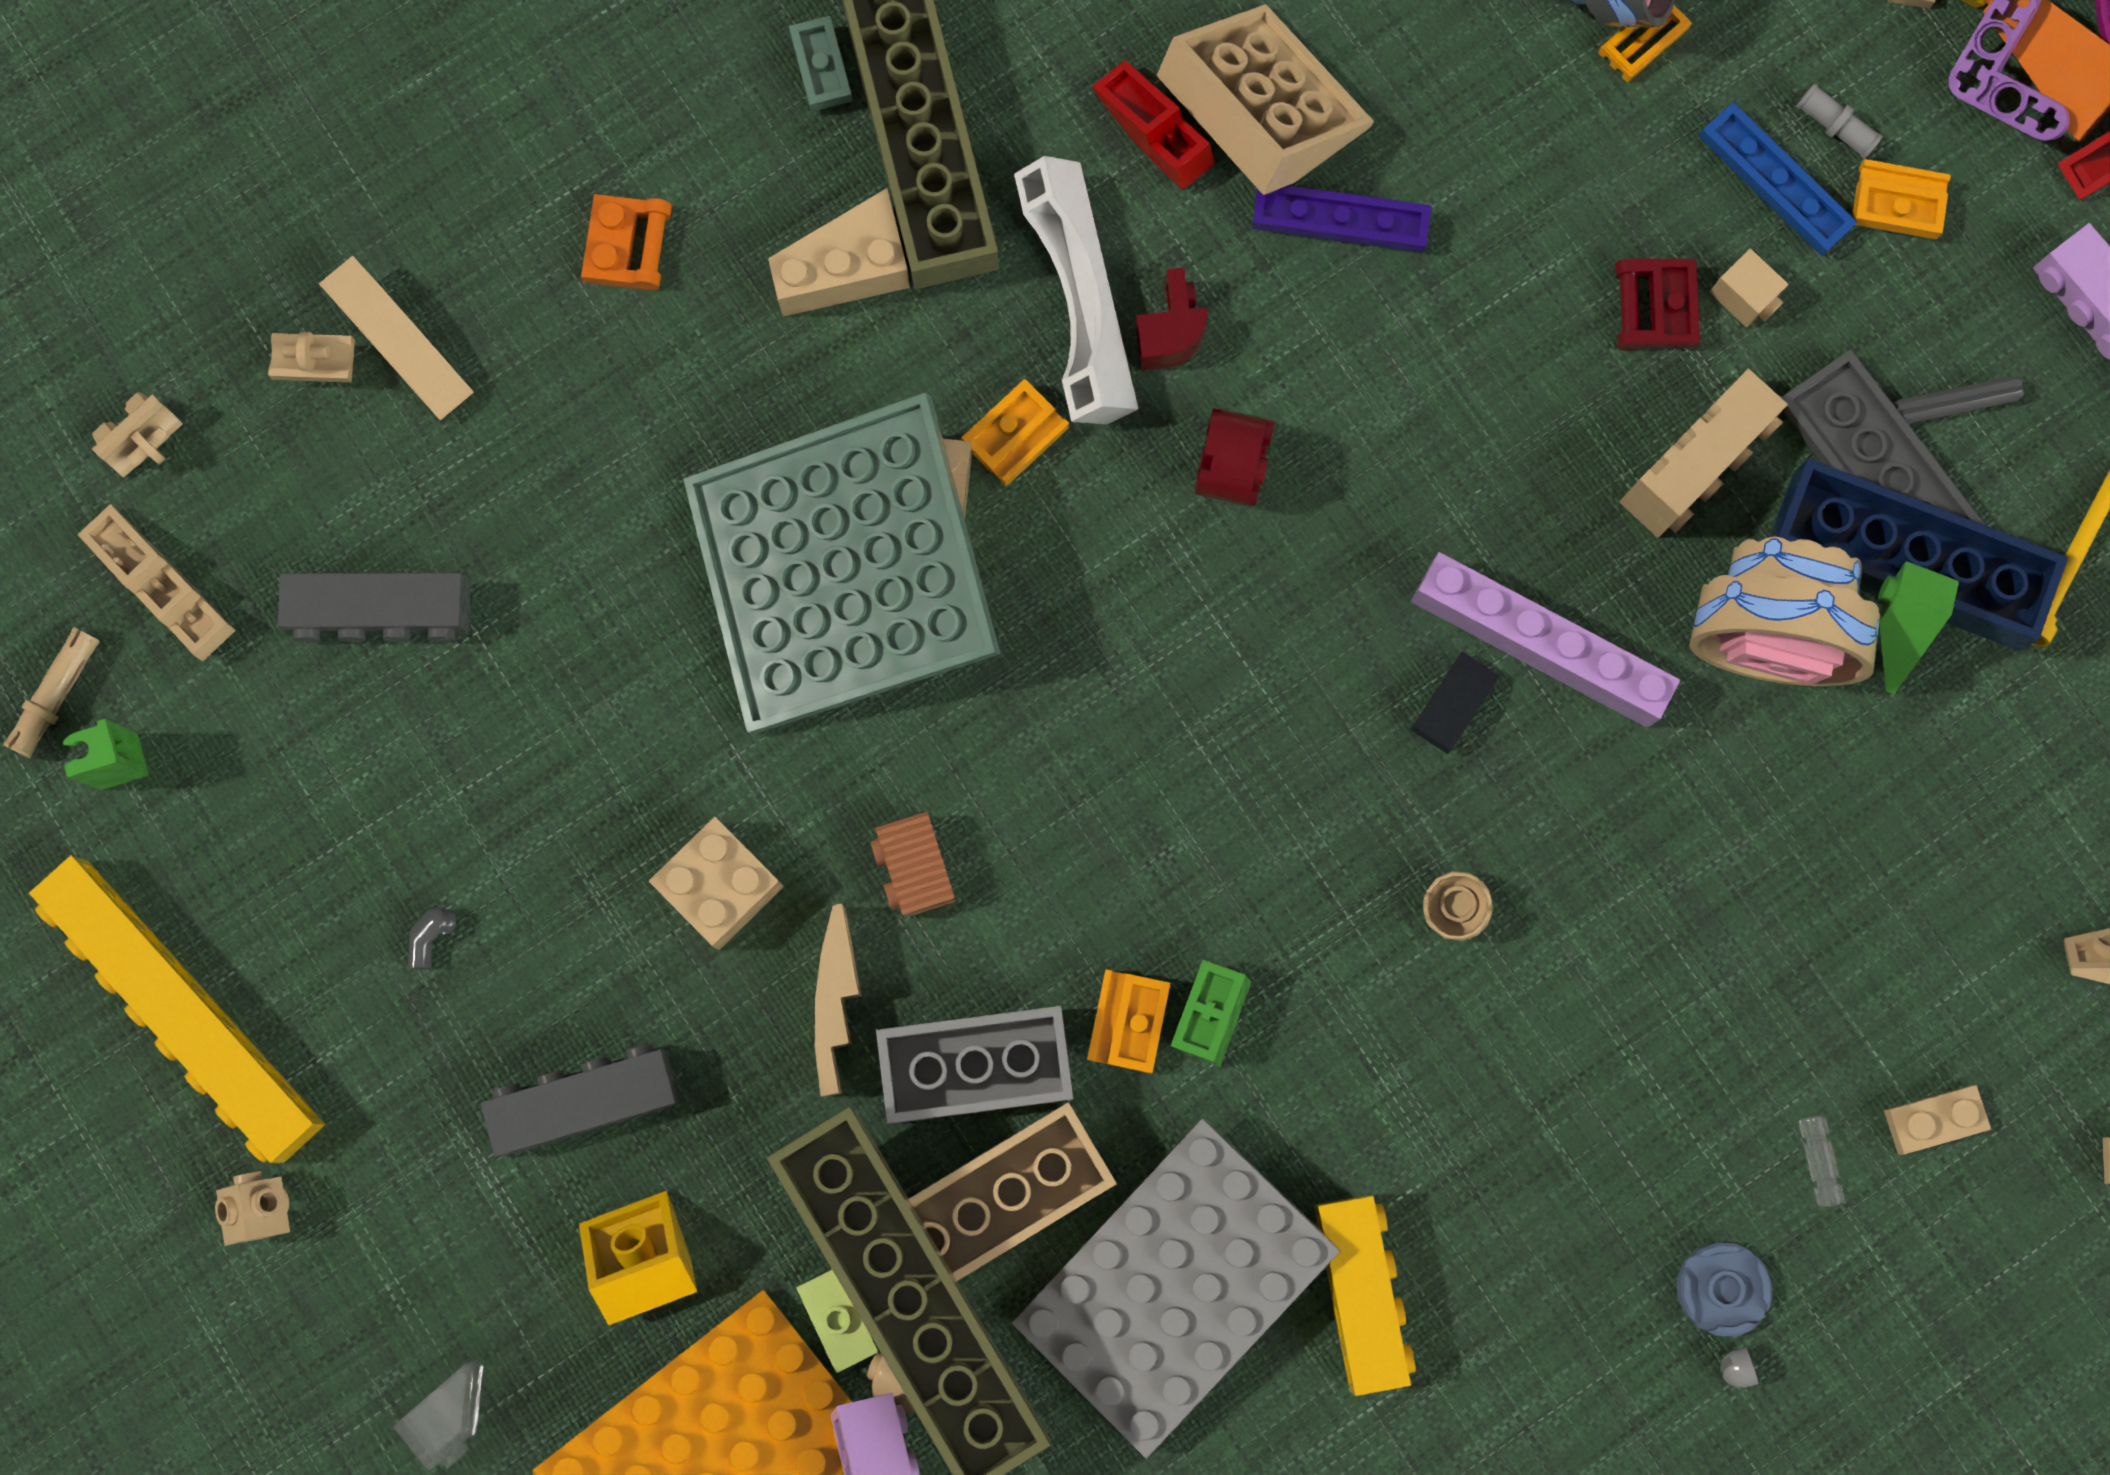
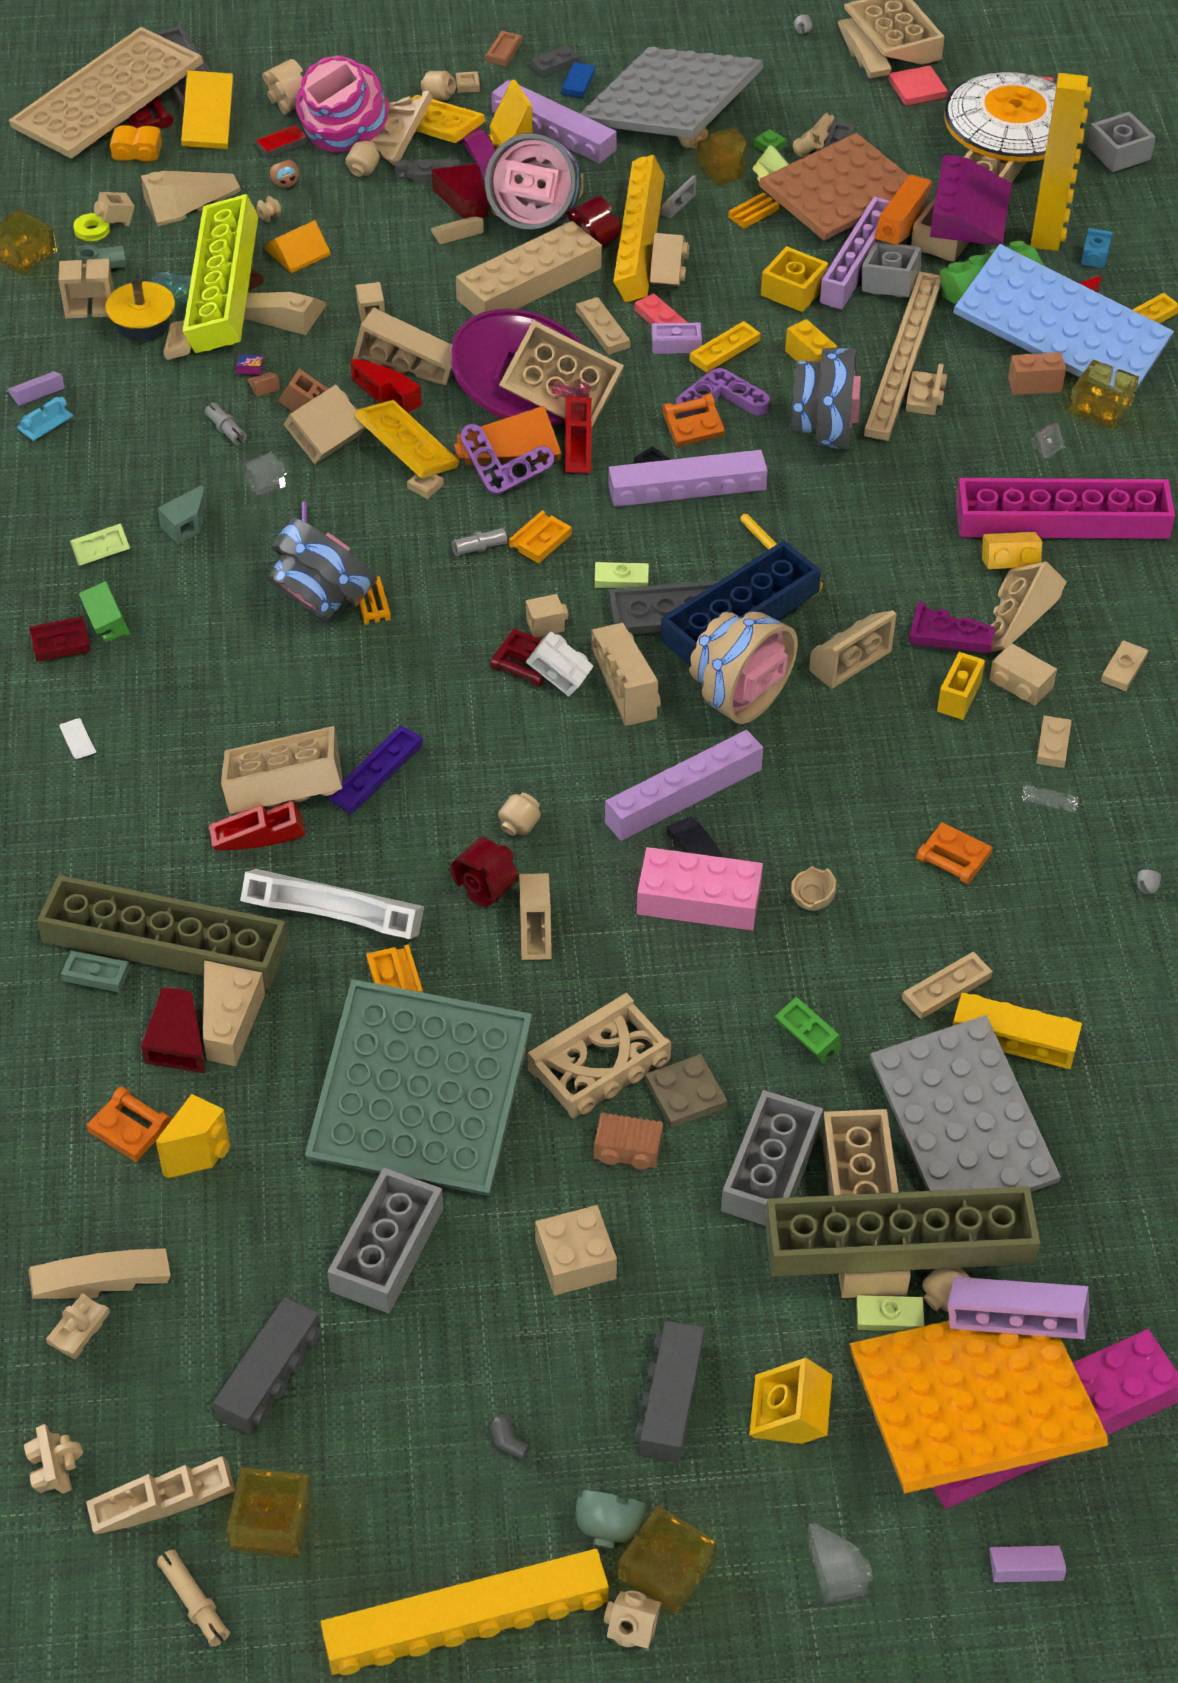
camera: 60 degrees left, 30 degrees down
(112, 756) = (268, 1562): bright green hinge -> none
(180, 719) = (269, 1512): none -> clear yellow brick
(340, 1211) = (671, 1560): none -> clear yellow piece
(370, 1113) = (608, 1517): none -> sand green cylinder
(605, 646) = (385, 1240): none -> light grey brick
(626, 332) = (193, 1138): none -> yellow slope
(781, 211) = (173, 1033): none -> dark red slope
(835, 983) = (676, 1215): tan slope -> none
(998, 705) = (599, 1082): none -> tan fence
(1040, 896) = (686, 1091): none -> dark tan plate
(1128, 1021) = (789, 1075): light orange plate -> none
(1174, 335) = (385, 870): dark red brick -> none
(1206, 557) = (535, 916): none -> tan slope
(1366, 447) = (519, 814): none -> tan head
(1372, 751) = (699, 888): none -> bright pink brick
(1396, 1163) = (947, 985): none -> tan plate
(1655, 1071) = (958, 848): none -> orange plate
(1661, 358) = (560, 663): none -> white brick
(1724, 1289) = (1099, 872): sand blue tile -> none
(1777, 179) = (492, 579): blue plate -> none
(1897, 351) = (620, 575): none -> yellowish green plate
(1912, 615) = (776, 601): bright green slope -> none
(1940, 750) = (853, 649): none -> tan slope
(1955, 942) = (961, 685): none -> yellow brick
(1960, 399) = (666, 560): dark grey axle -> none
(2037, 1020) = (1022, 674): none -> tan brick
(2061, 871) = (944, 631): none -> magenta wing

